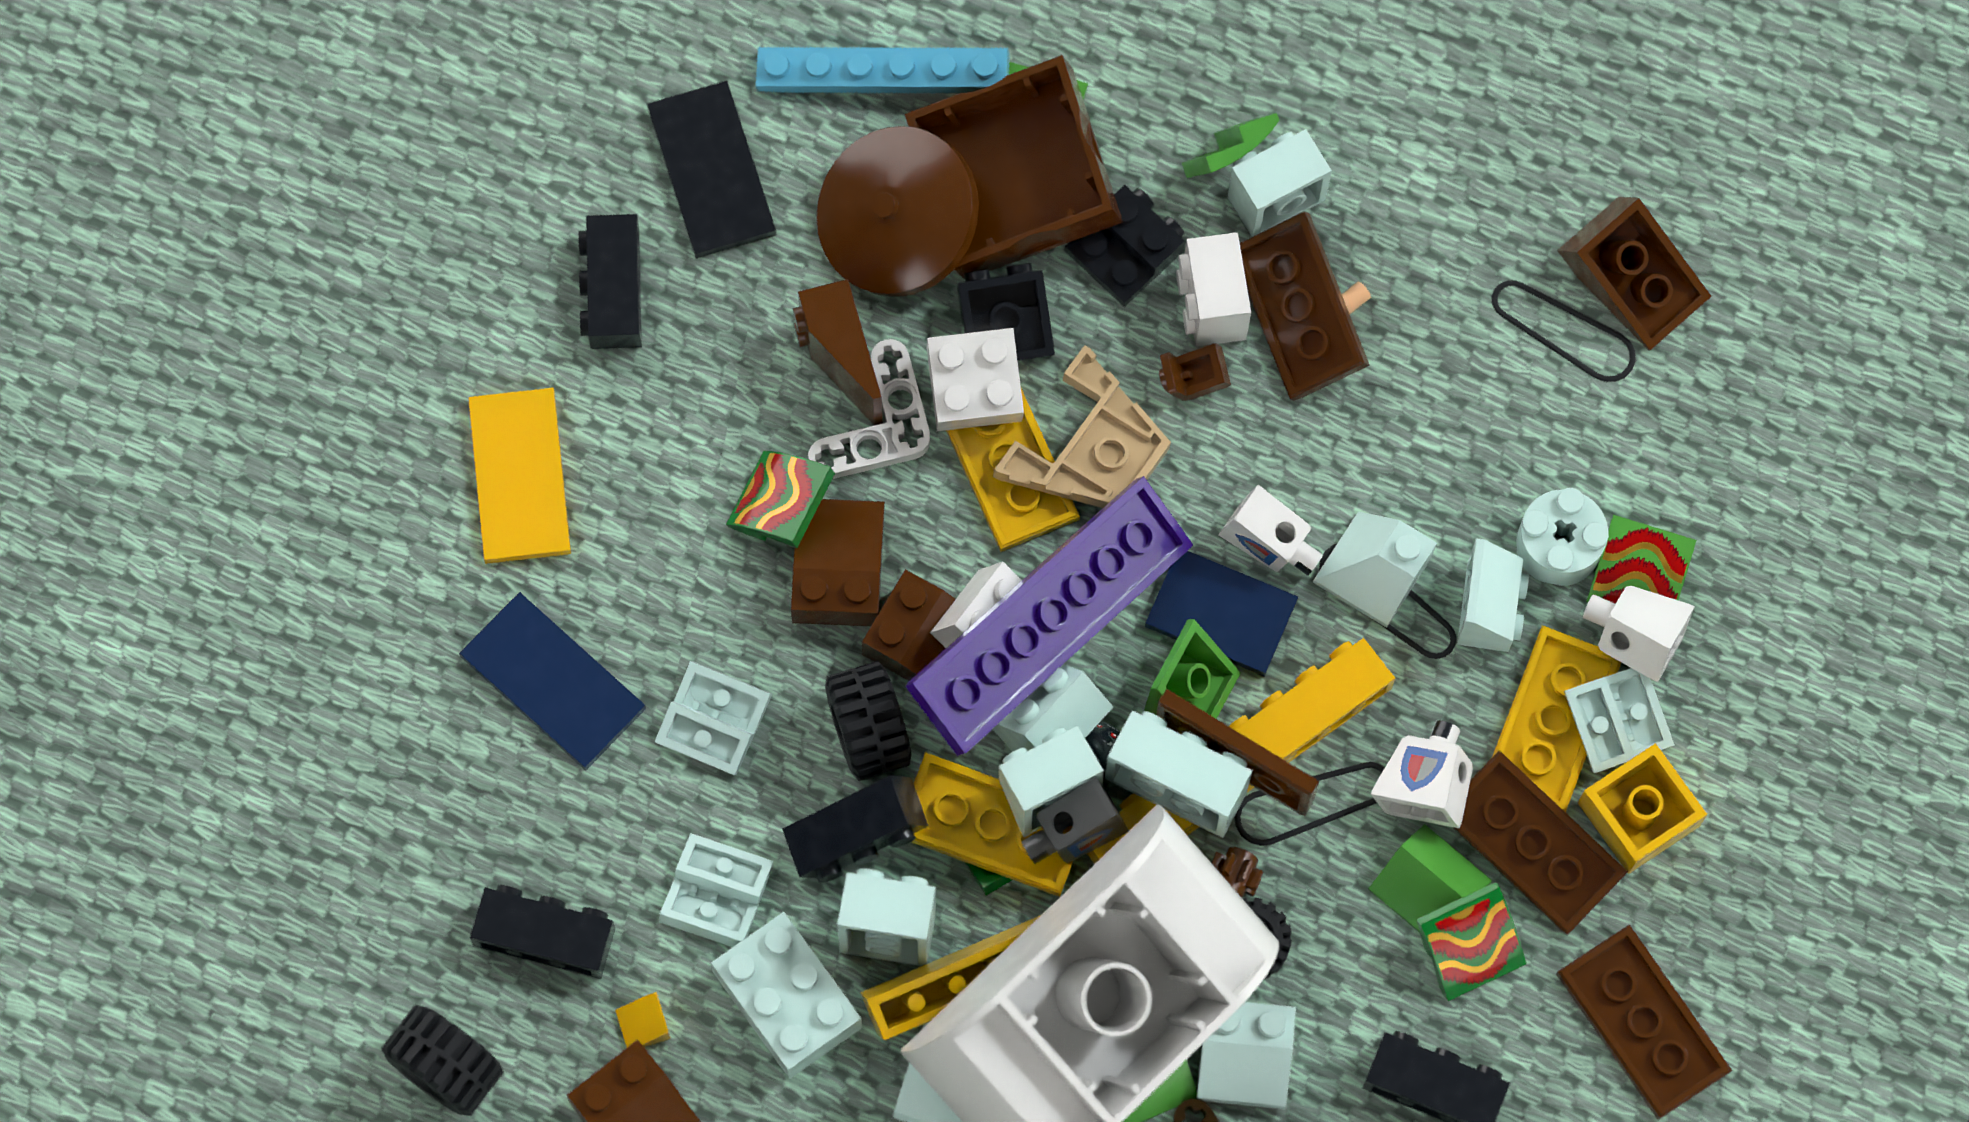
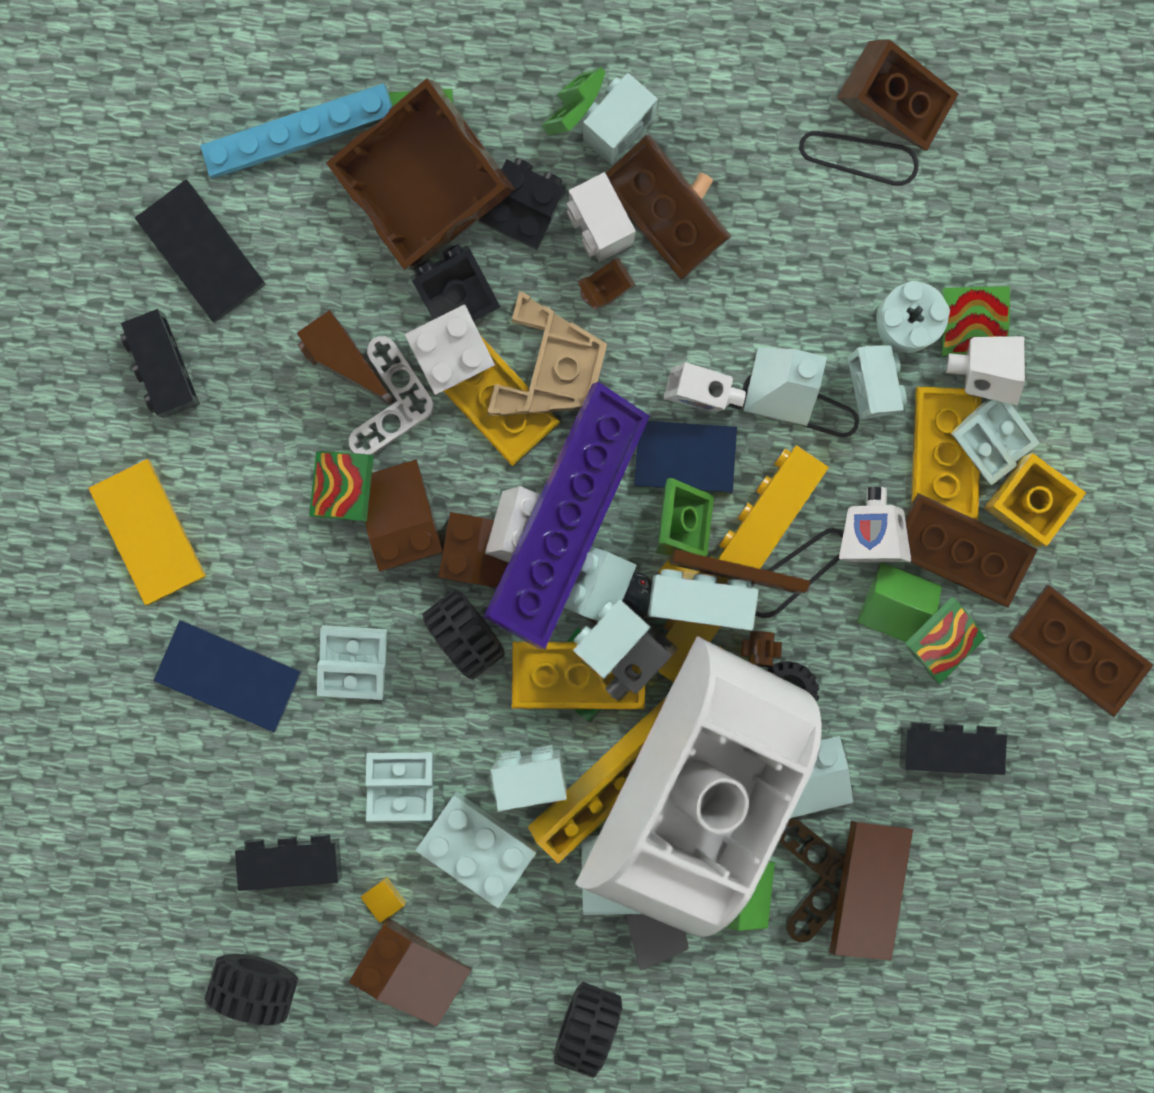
camera: 20 degrees left, 15 degrees up
(855, 828) = (484, 717): black brick -> none
(897, 211) = (347, 238): reddish brown dish -> none

